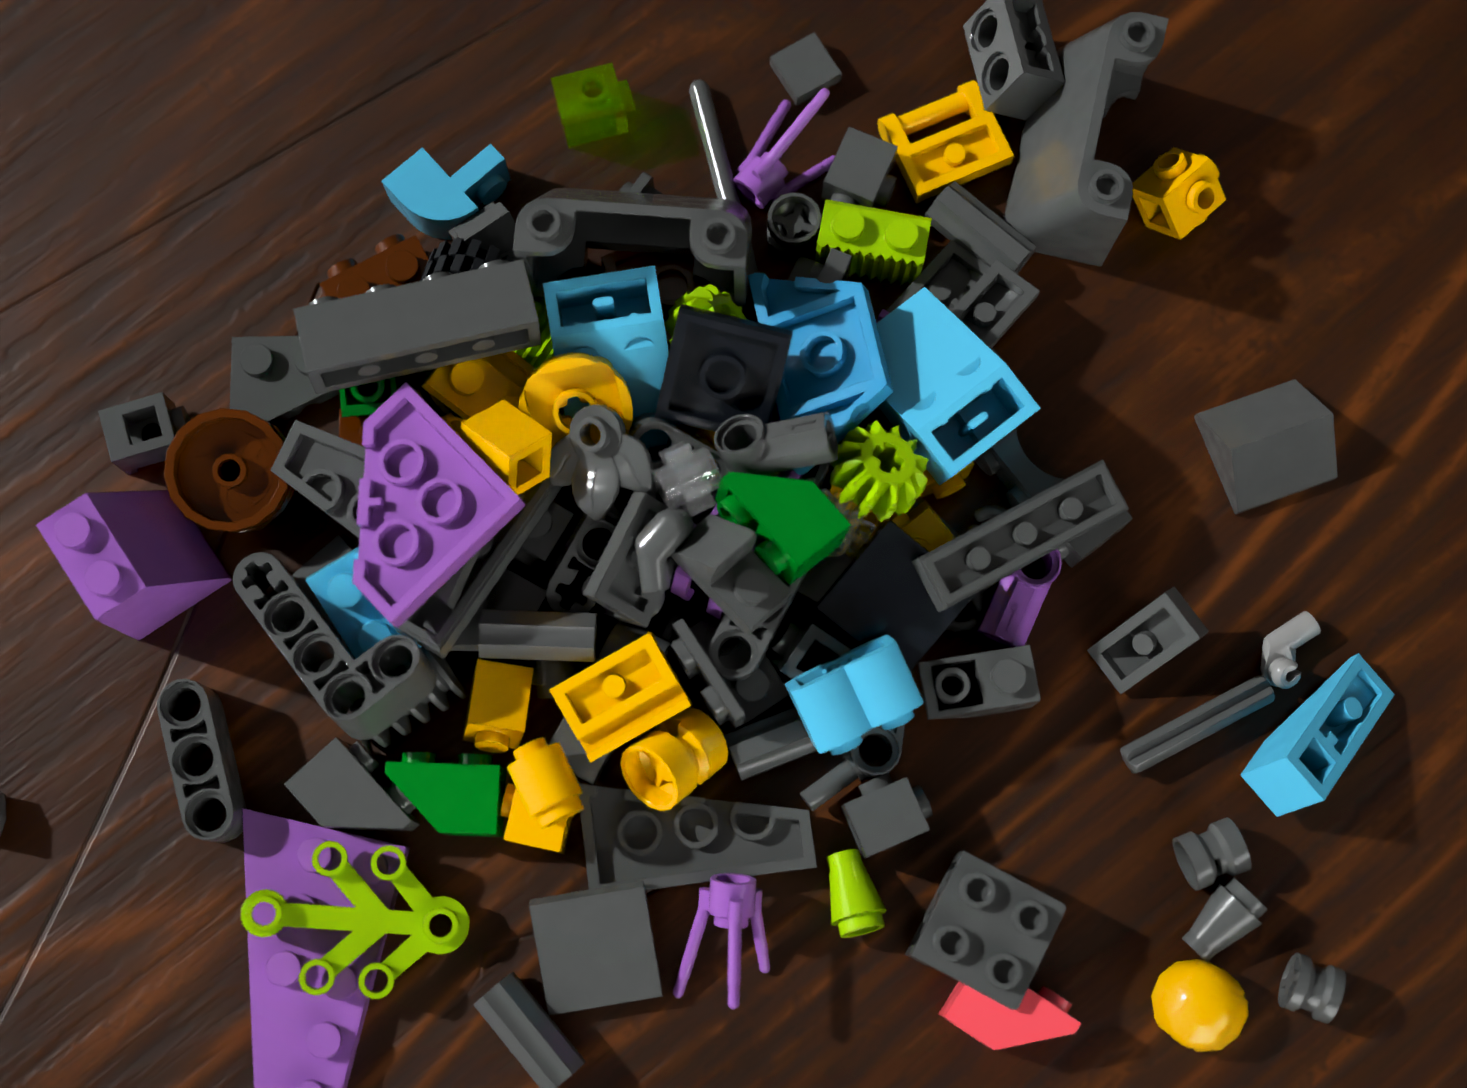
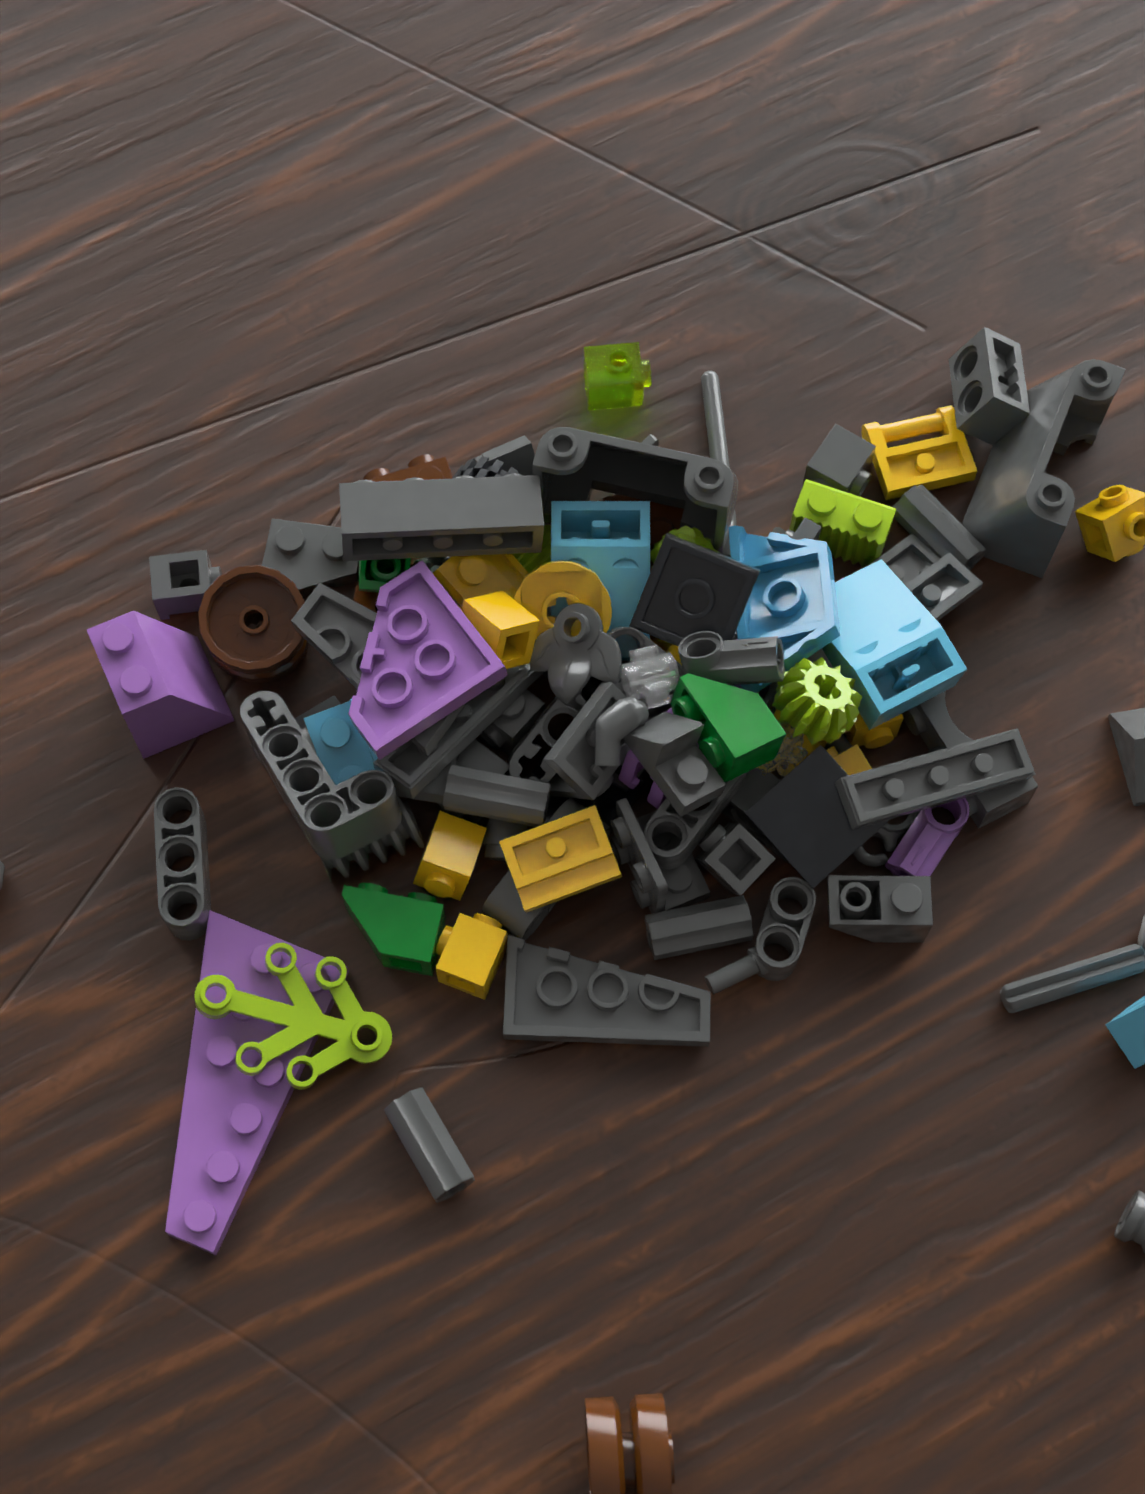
camera: 10 degrees right, 10 degrees down
(347, 794) = (305, 915): dark grey slope -> none
(441, 202) = (467, 432): medium azure brick -> none
(545, 782) = (482, 920): yellow brick -> none
(596, 947) = (501, 1079): dark grey tile -> none
(674, 758) = (598, 924): yellow wheel -> none
(732, 902) = (629, 1057): medium lavender plant -> none
(762, 174) = (754, 455): medium lavender plant -> none
(794, 215) = (772, 491): dark grey wheel -> none
(805, 68) = (805, 375): dark grey tile -> none
(853, 897) = (739, 1077): lime cone -> none
(854, 695) = (767, 889): medium azure brick -> none
(886, 814) = (779, 1008): dark grey brick -> none
(986, 929) = (855, 1117): dark grey bracket -> none
(998, 1027) = (860, 1196): coral slope -> none
(1148, 640) = (1038, 895): dark grey slope -> none
(1199, 1005) = (1041, 1225): yellow hair -> none
(1212, 853) = (1070, 1090): dark grey wheel -> none
(1224, 919) = (1074, 1150): dark grey cone -> none

